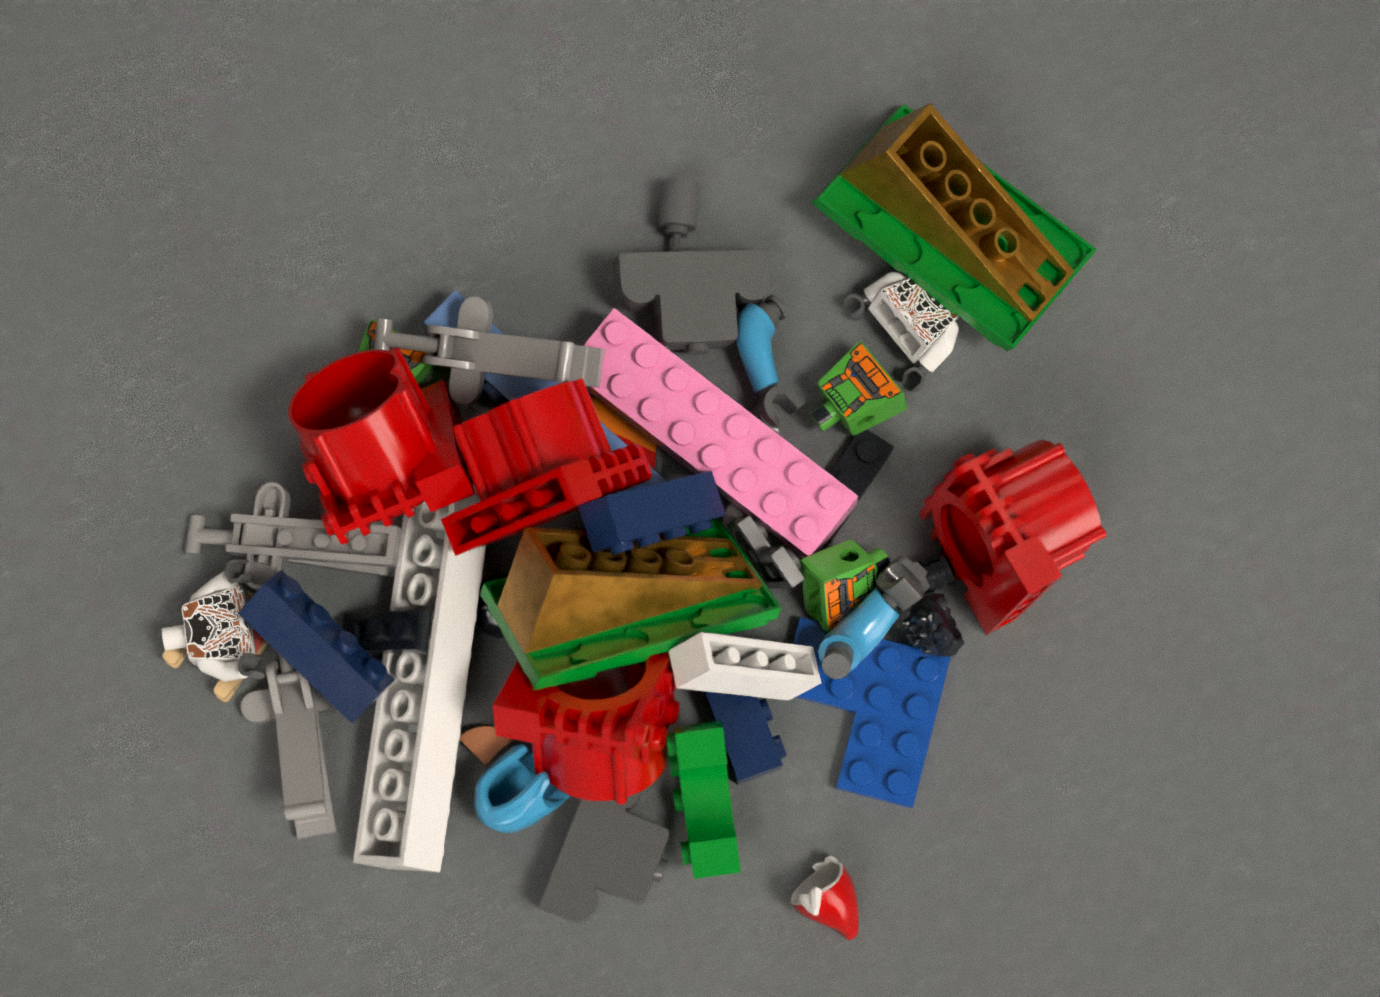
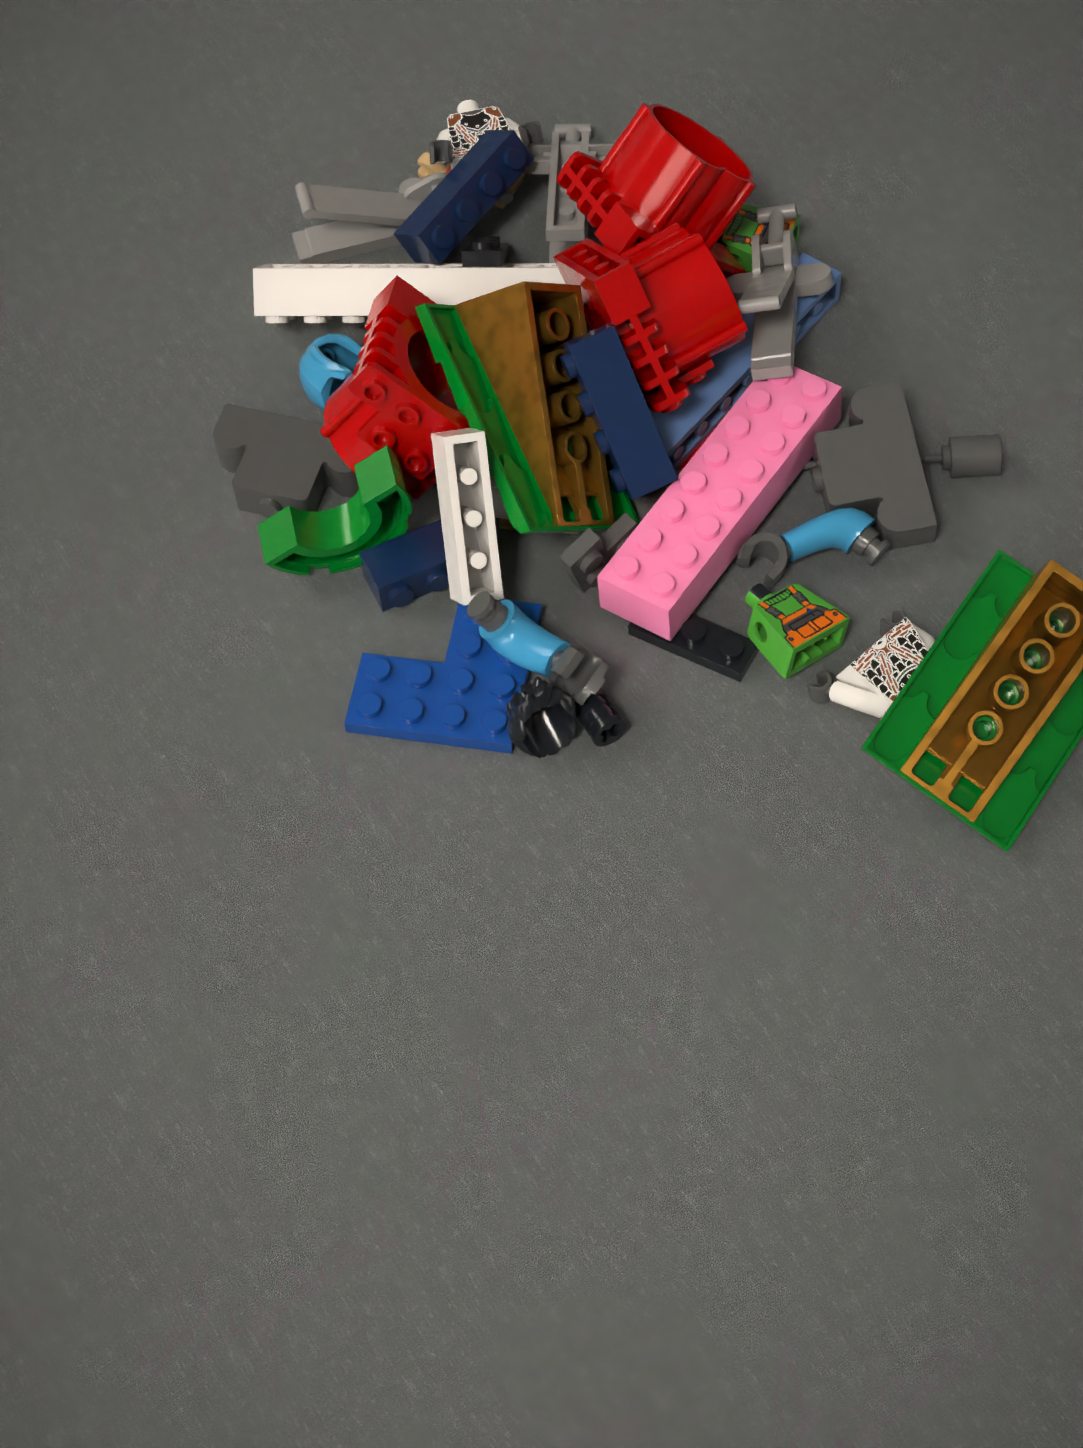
camera: 90 degrees right, 20 degrees down
(829, 898) = (241, 652): hat -> none
(839, 580) = (582, 615): bright green torso -> none
(1012, 526) = (649, 752): red hose -> none

